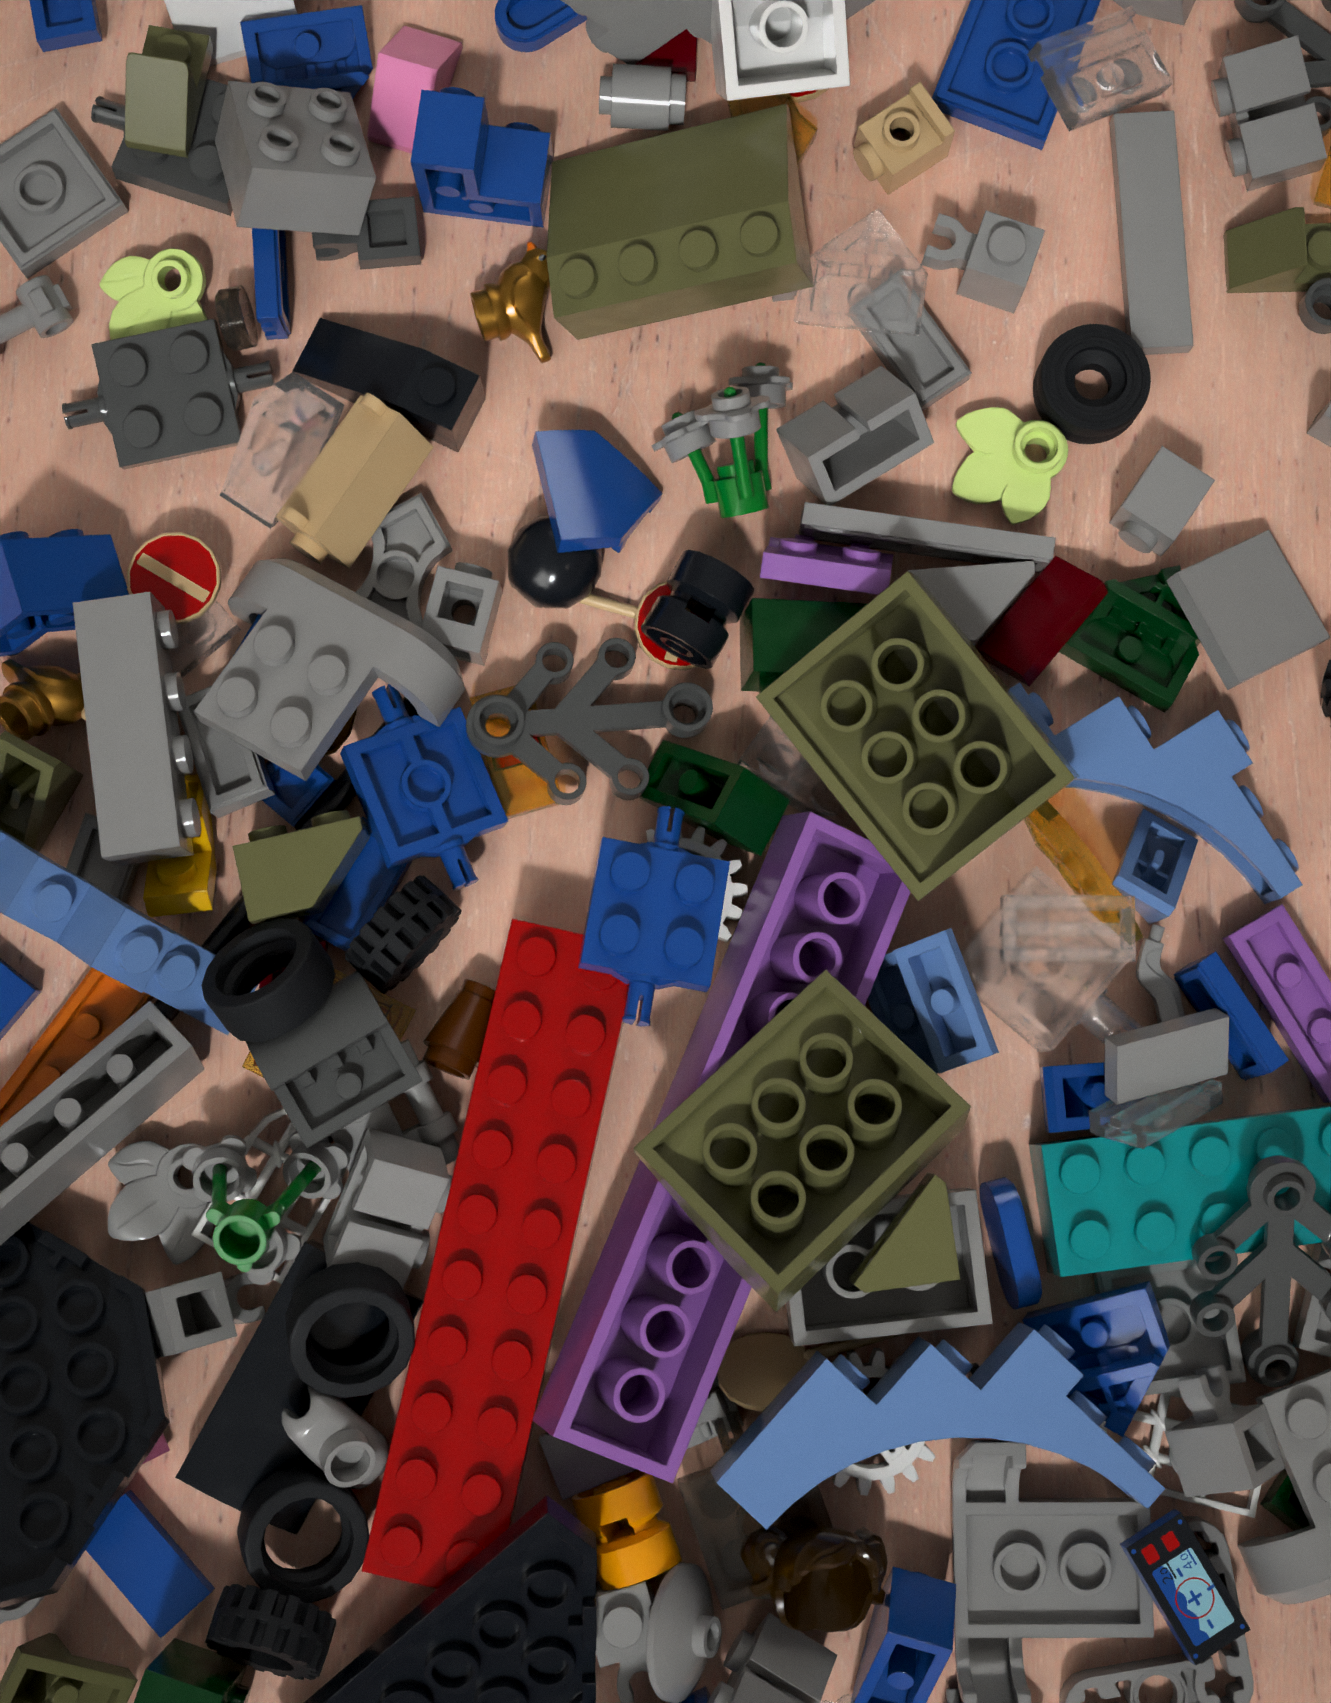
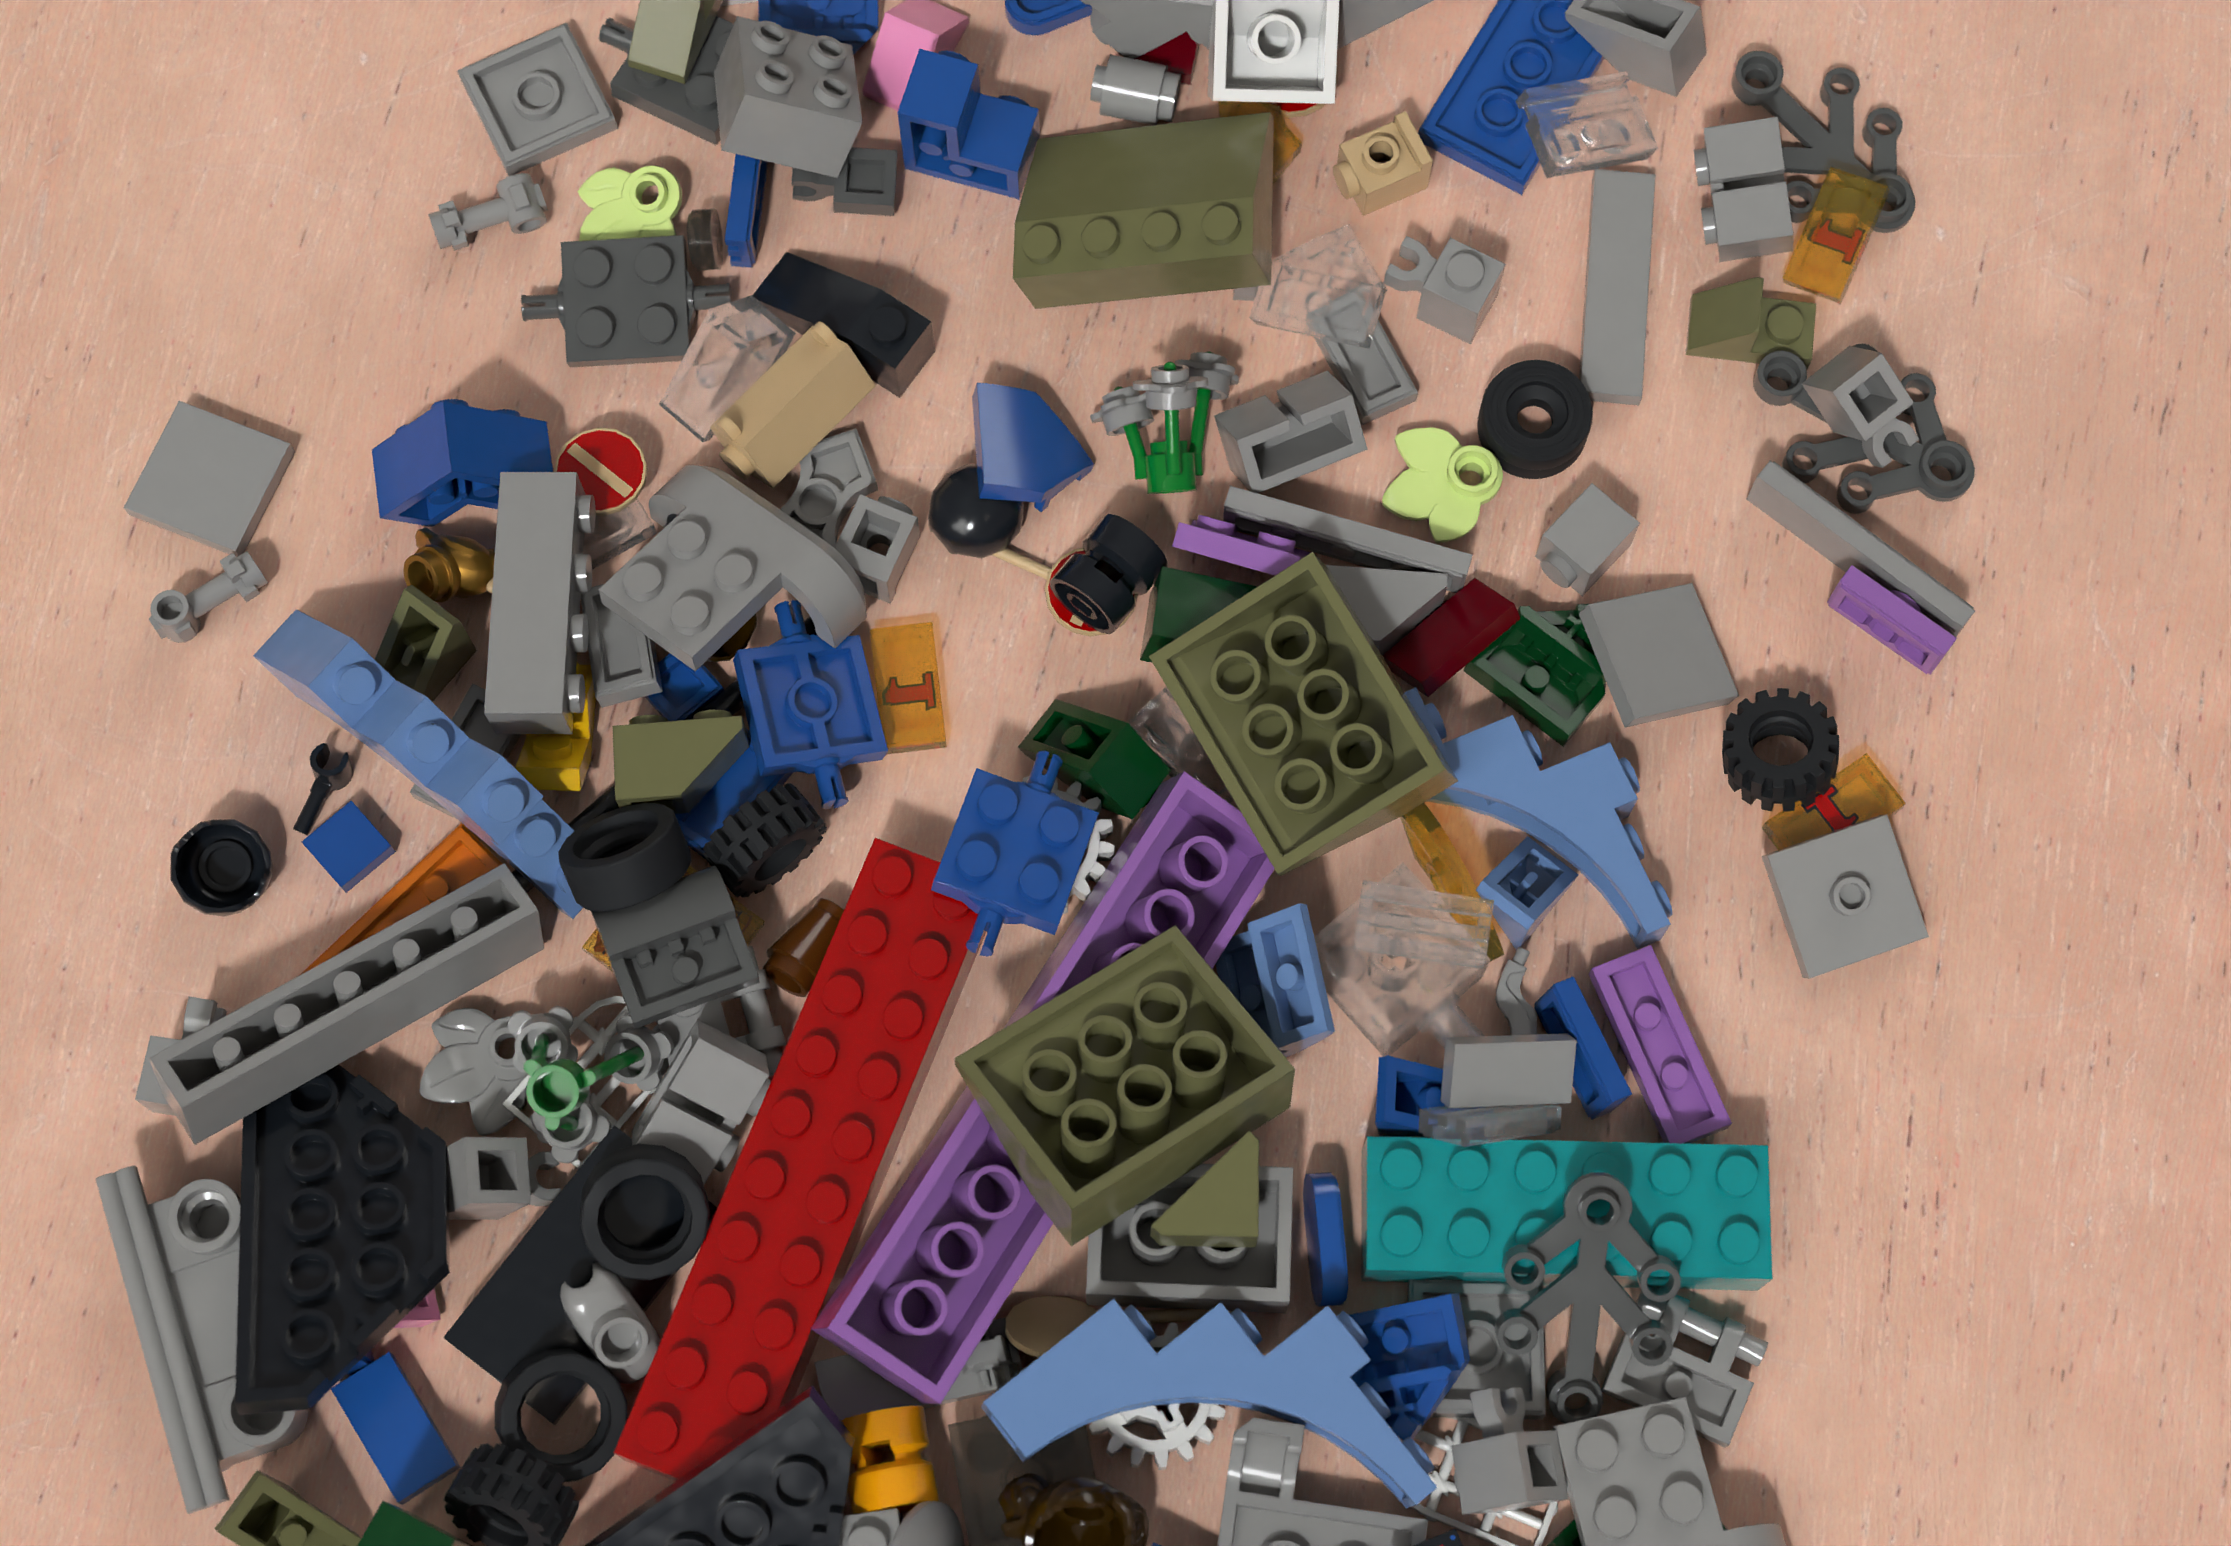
camera: 10 degrees right, 10 degrees down
(516, 302) = (979, 263): pearl gold animal -> none
(578, 721) = (974, 664): dark grey plant -> none

